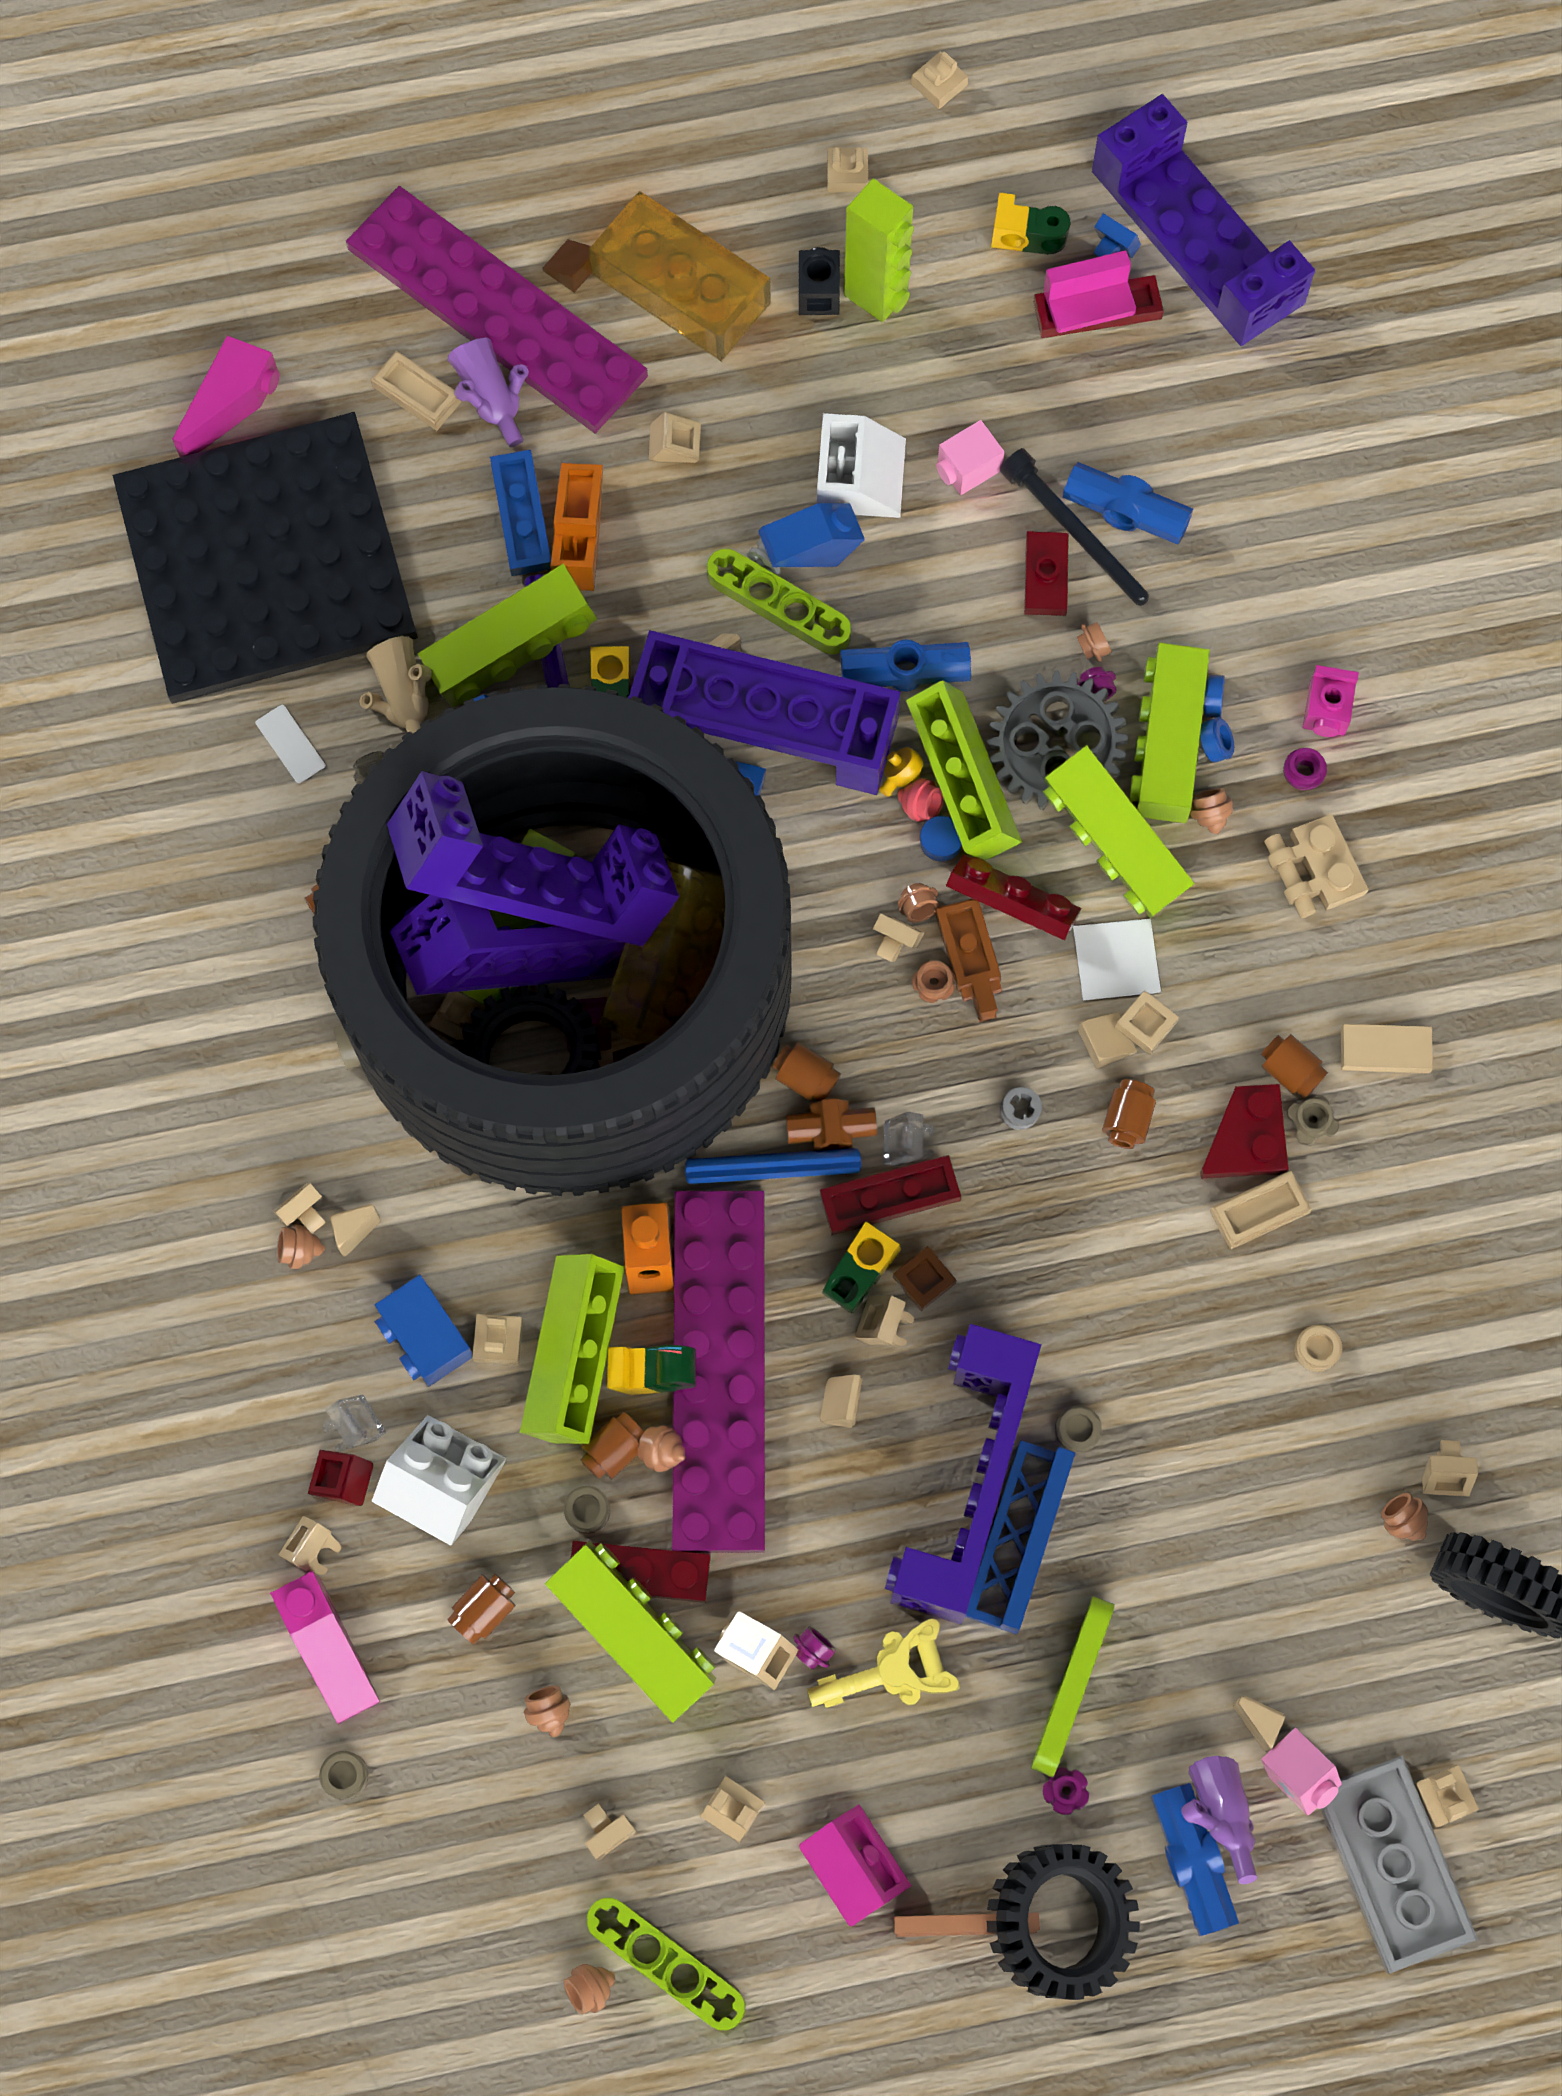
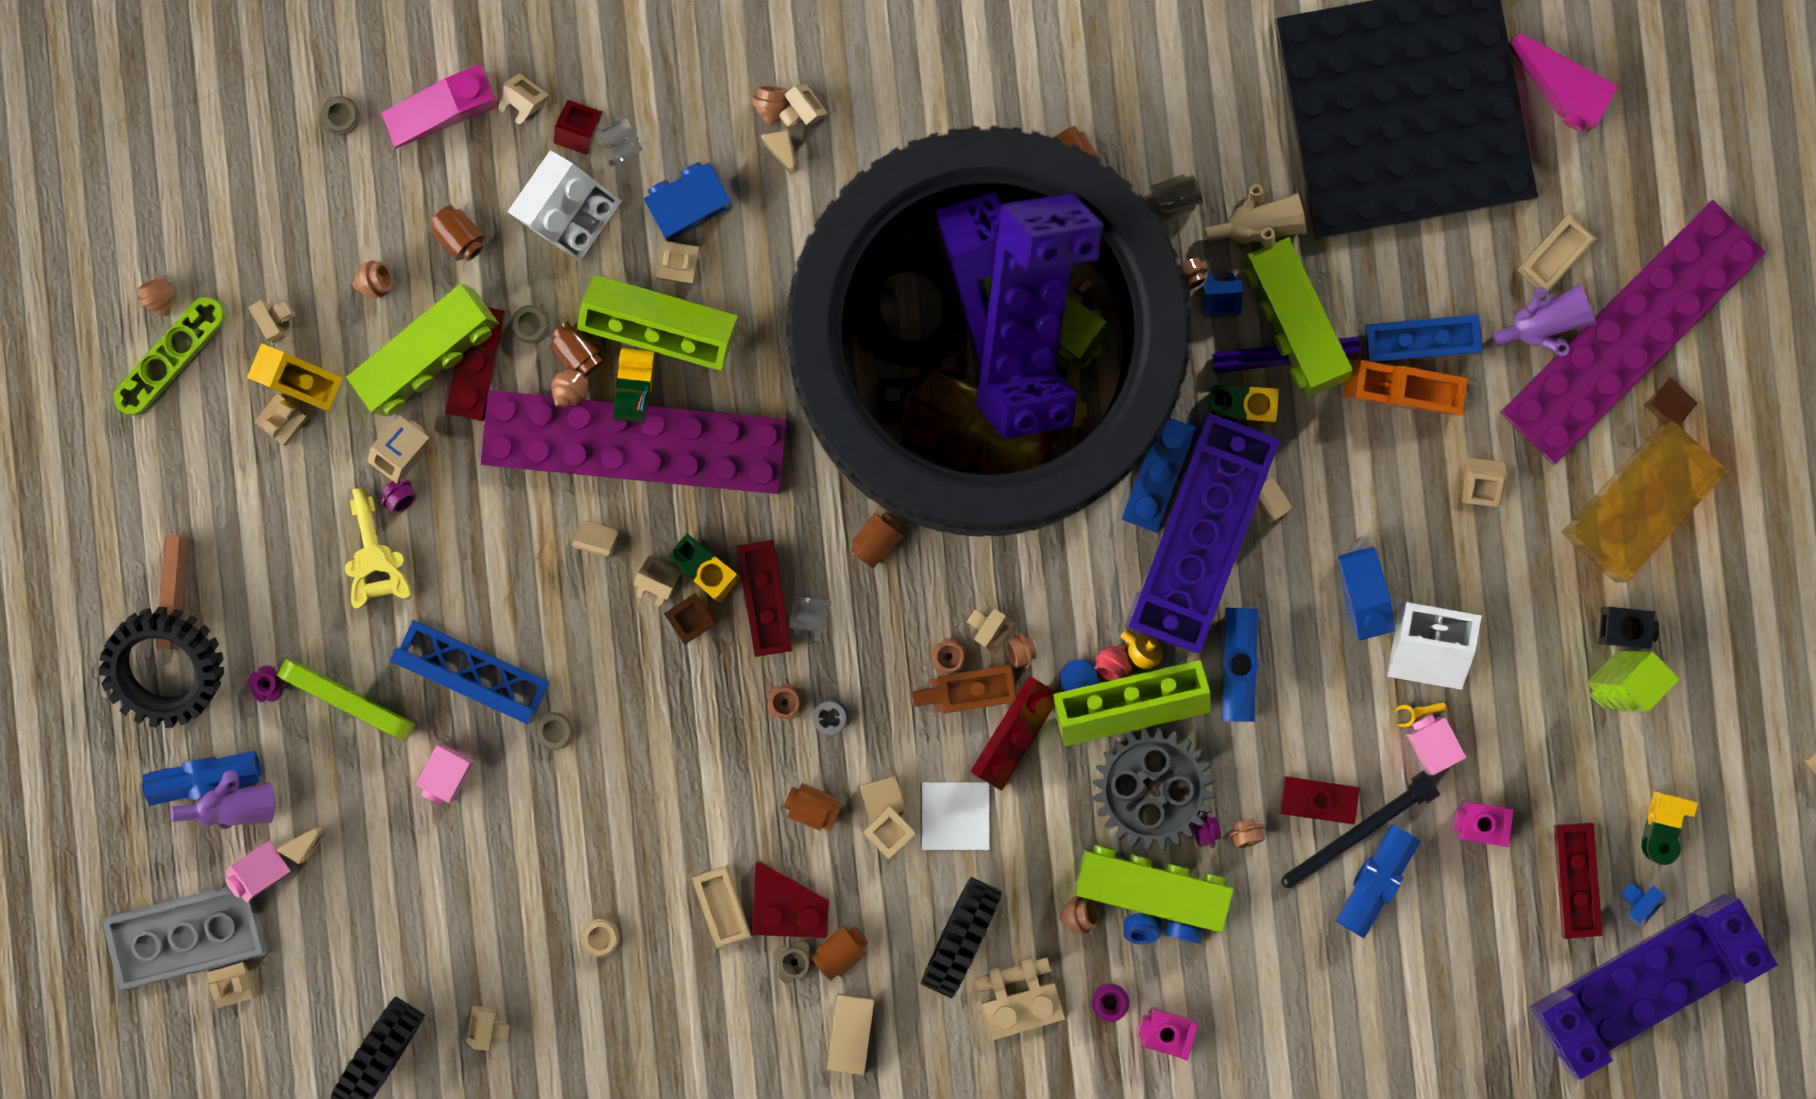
camera: 95 degrees right, 15 degrees up
(290, 744) = (1225, 122): white sticker -> none
(648, 1248) = (740, 392): orange torso -> none
(677, 1795) = (295, 377): none -> yellow slope
(773, 1166) = (800, 503): blue axle -> none
(782, 596) = (1312, 557): lime beam -> none
(831, 1125) = (829, 555): dark orange axle -> none
(847, 169) = (1745, 667): tan tile -> none
(854, 1865) = (227, 511): dark pink panel -> none
(936, 482) = (1419, 712): none -> yellow hand
(1004, 1369) = (430, 605): dark purple plate -> none
(1015, 1150) = (787, 692): none -> nougat plate
(1049, 401) = (1500, 824): none -> dark pink brick
(1089, 292) = (1584, 873): dark pink panel -> none
(1117, 832) = (1059, 828): lime brick -> none
(1149, 1552) = (444, 774): none -> bright pink brick
(1259, 919) = (961, 937): none -> black tyre
(1406, 1517) = (452, 986): nougat plate -> none

